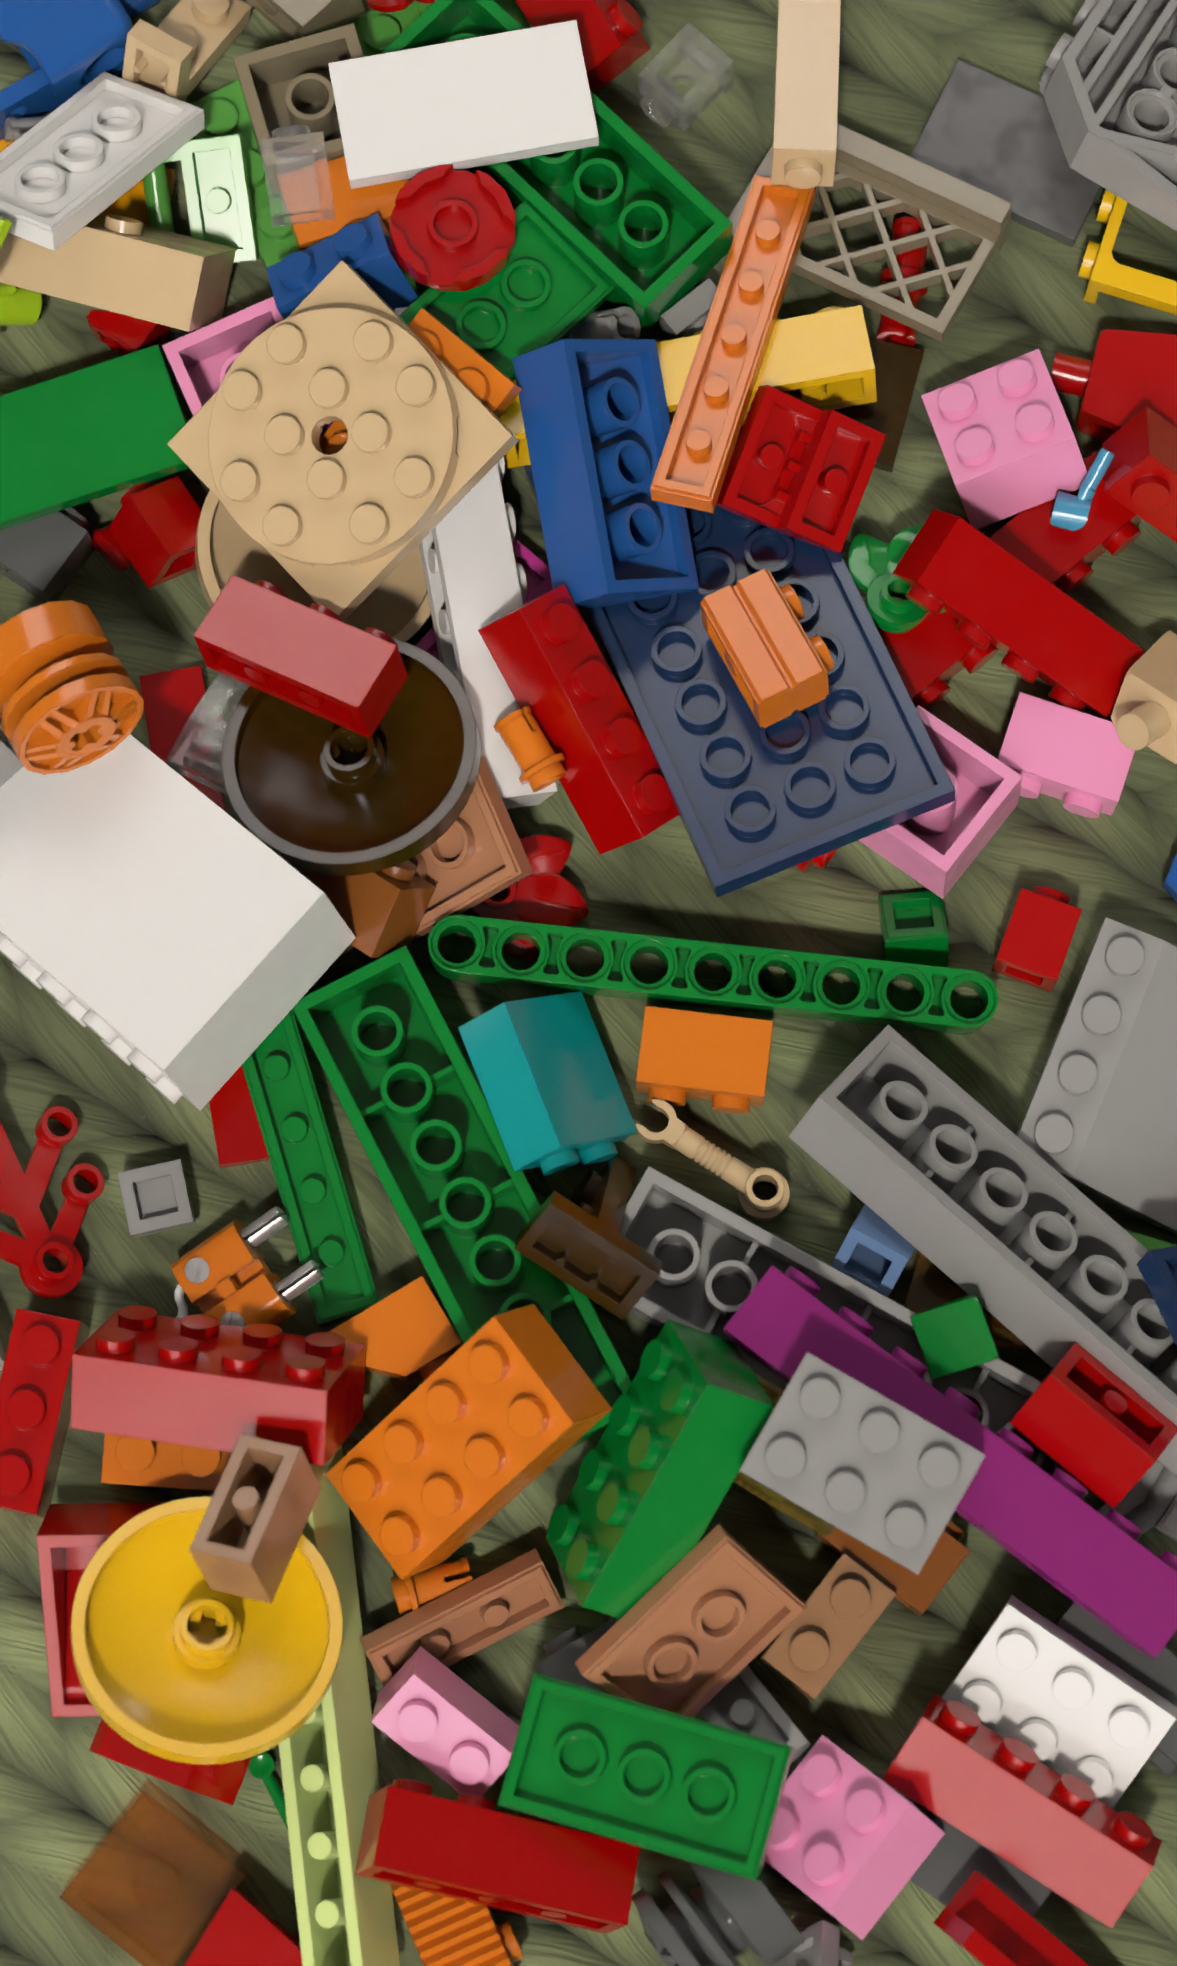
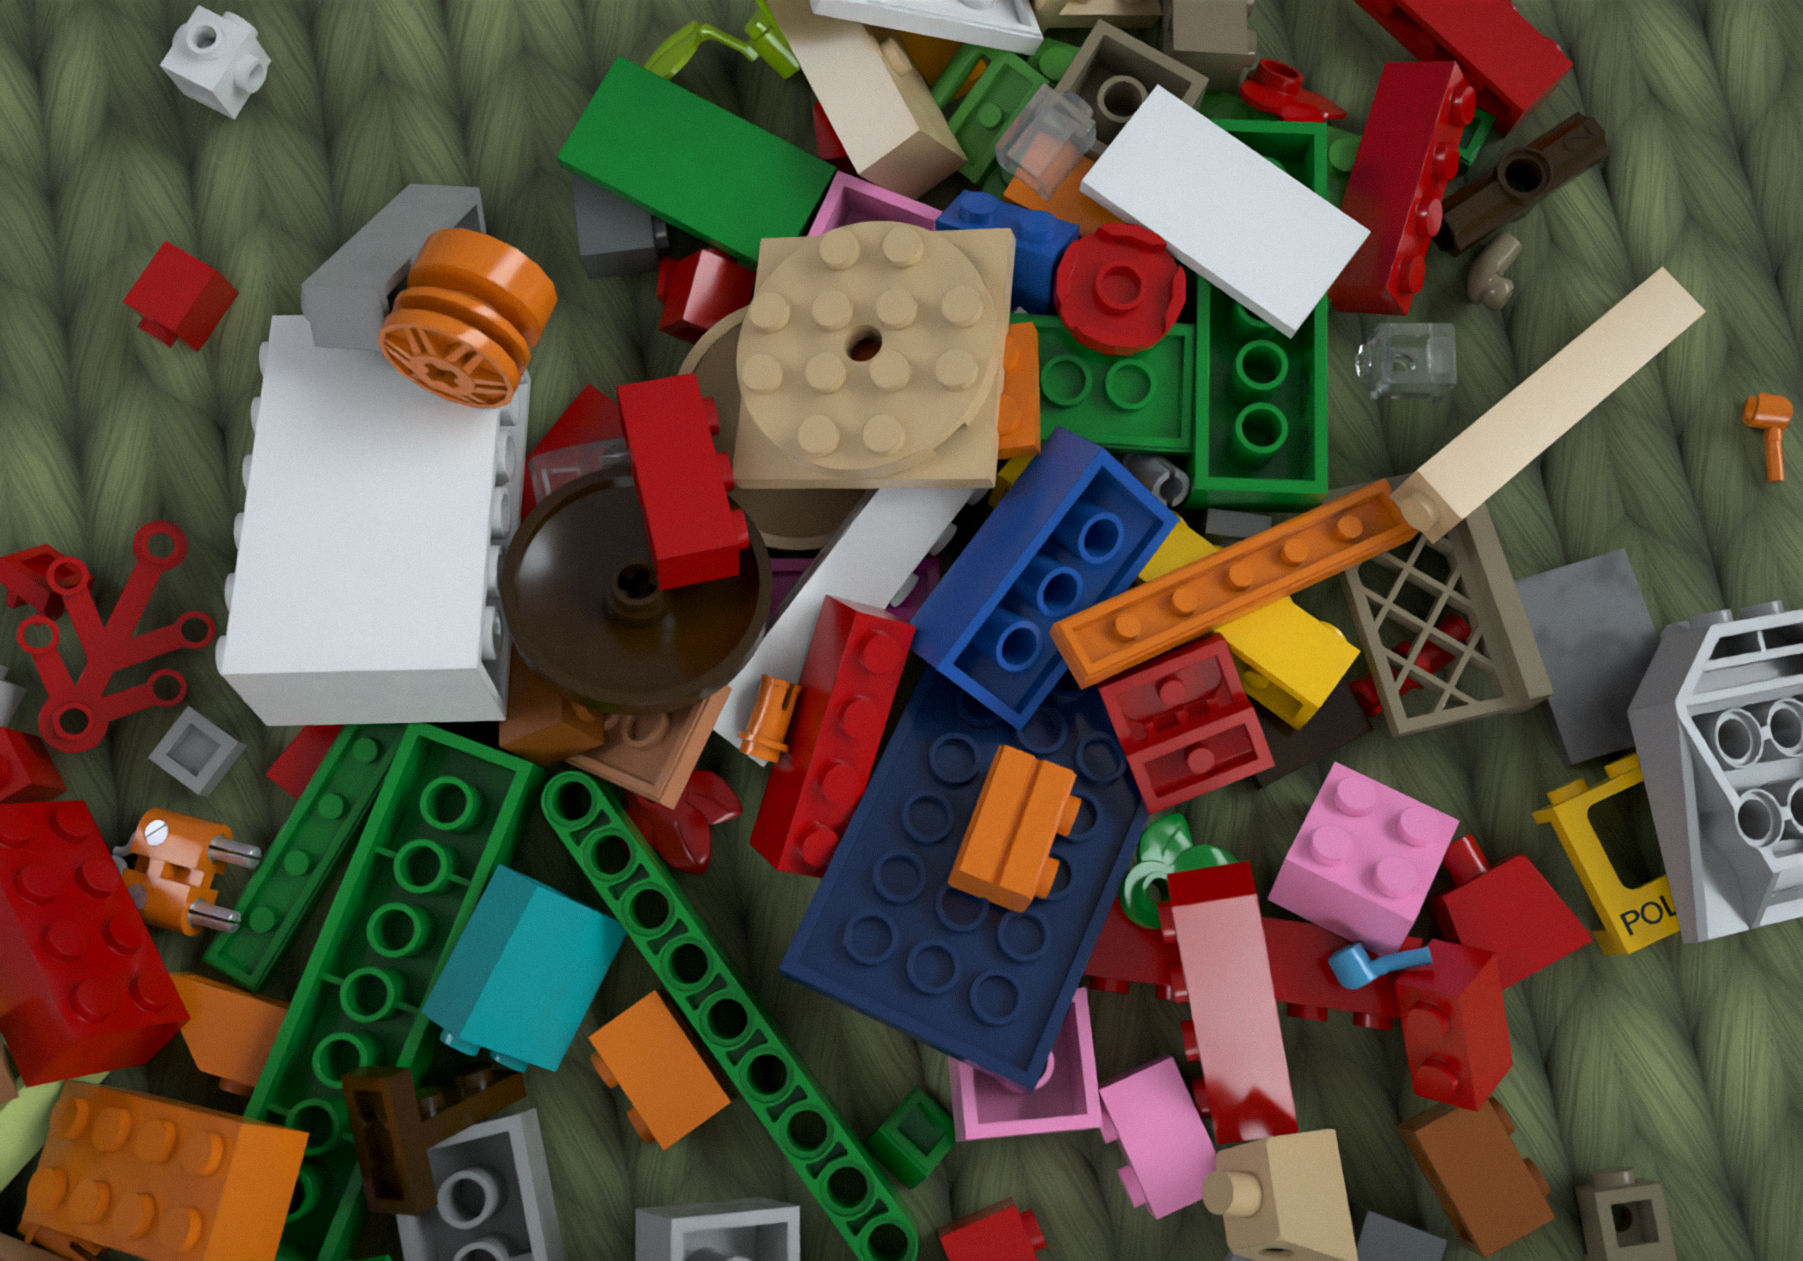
camera: 45 degrees right, 0 degrees up
(730, 1169) = (589, 1172): tan brick -> none

